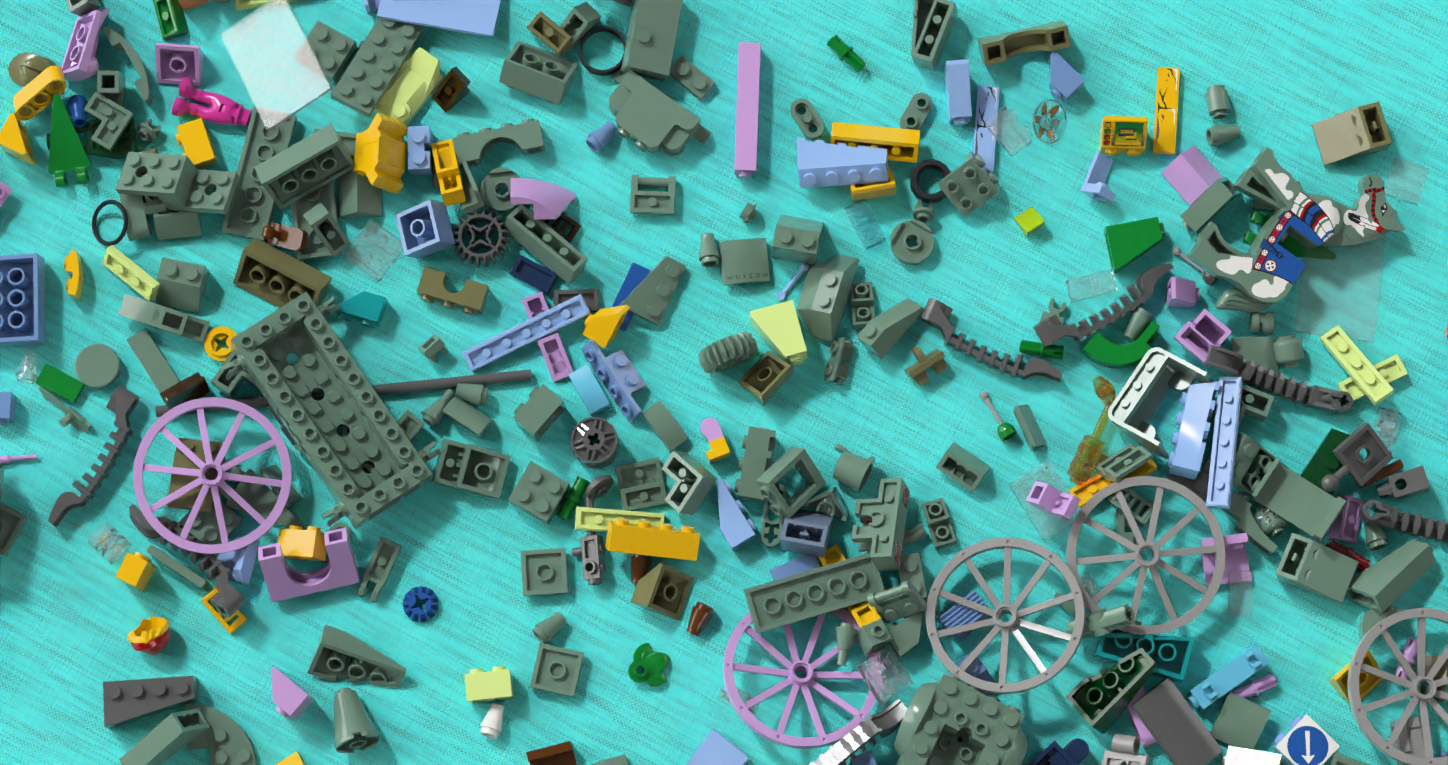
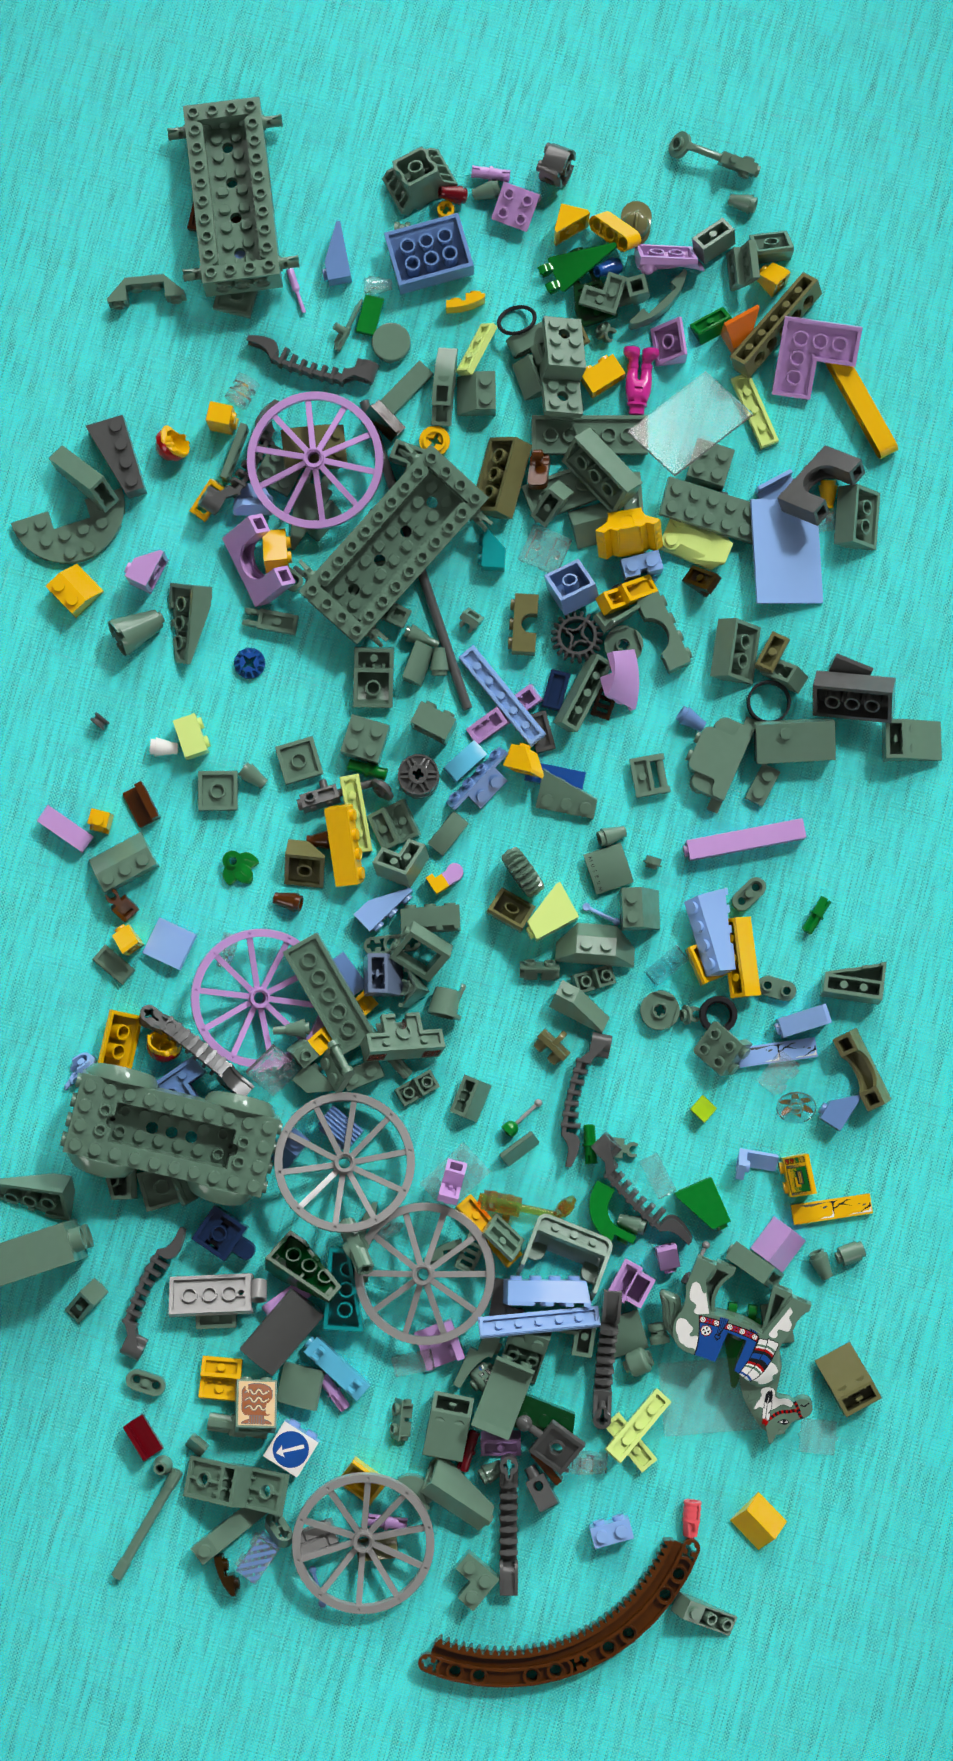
camera: 75 degrees right, 5 degrees up
(1288, 618) = (400, 1428): none -> sand green hinge

